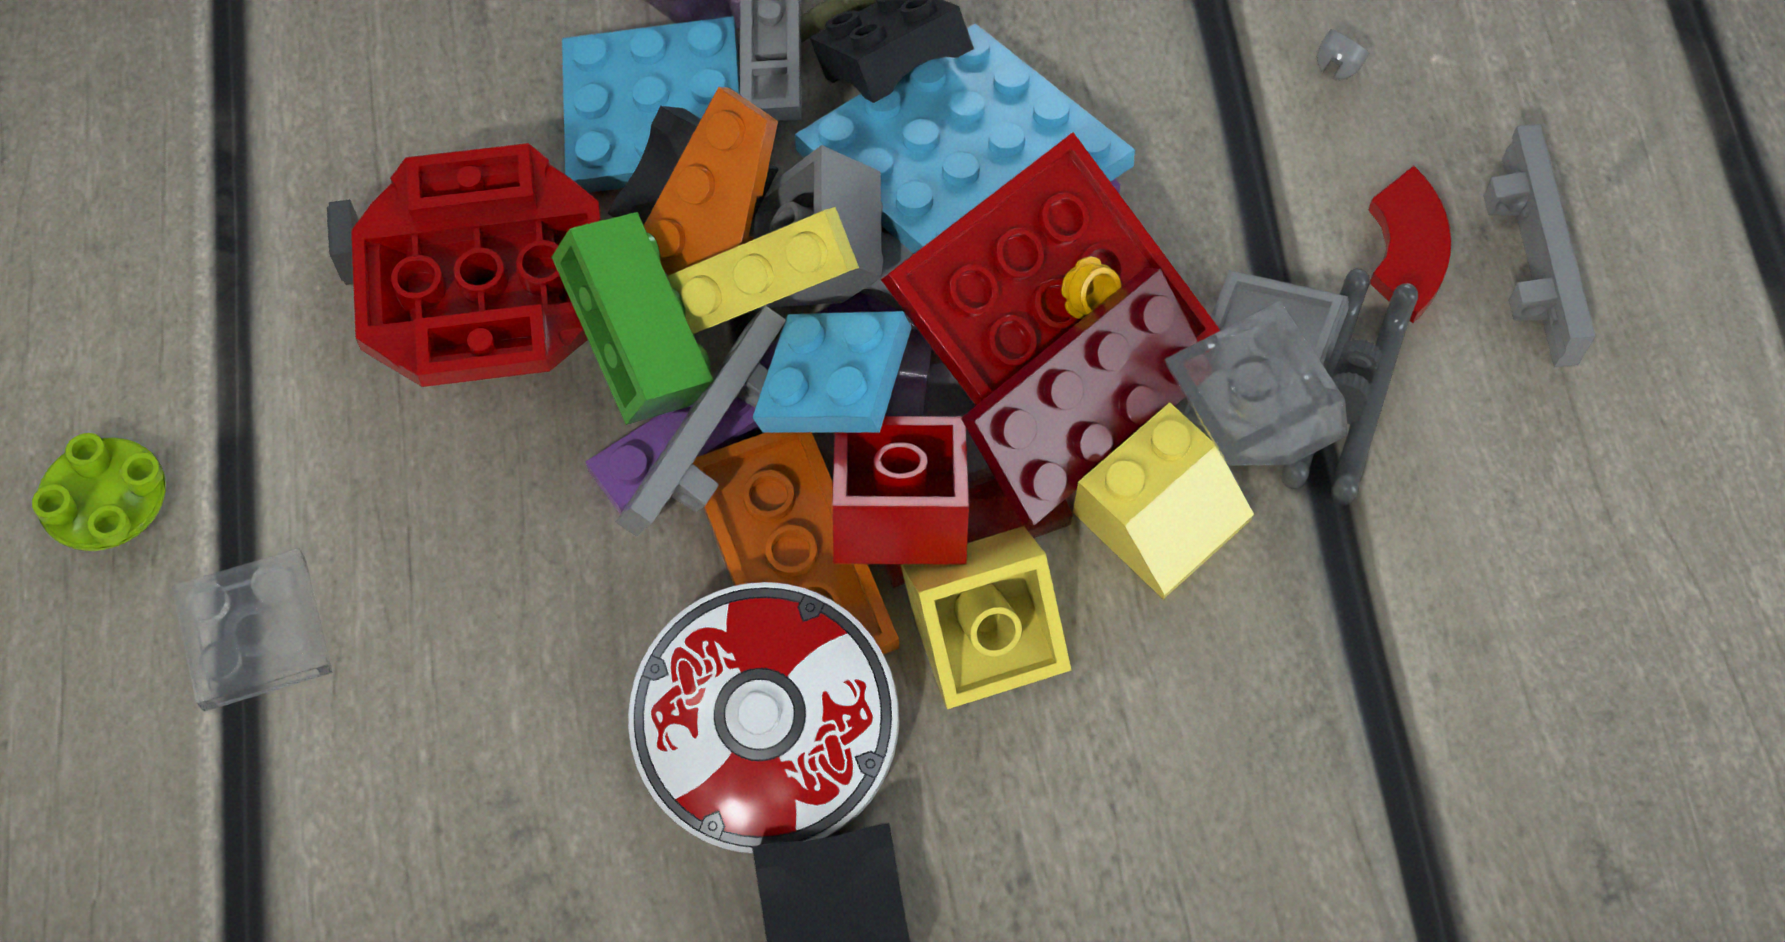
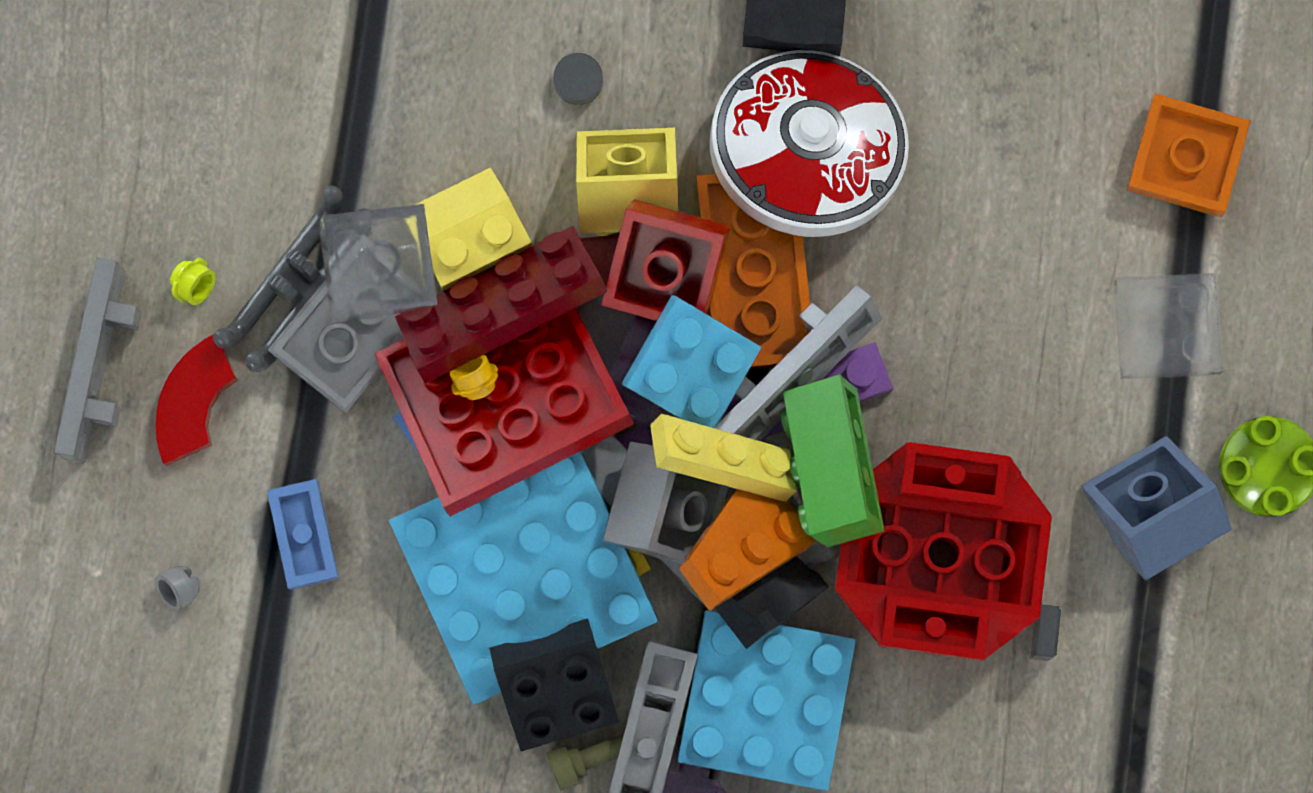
camera: 160 degrees left, 15 degrees up
(236, 407) = (1157, 507): none -> sand blue slope
(253, 847) = (1188, 155): none -> orange plate
(1092, 734) = (578, 78): none -> dark grey tile
(1226, 136) = (303, 534): none -> medium blue plate
(1470, 362) = (192, 281): none -> neon yellow plate

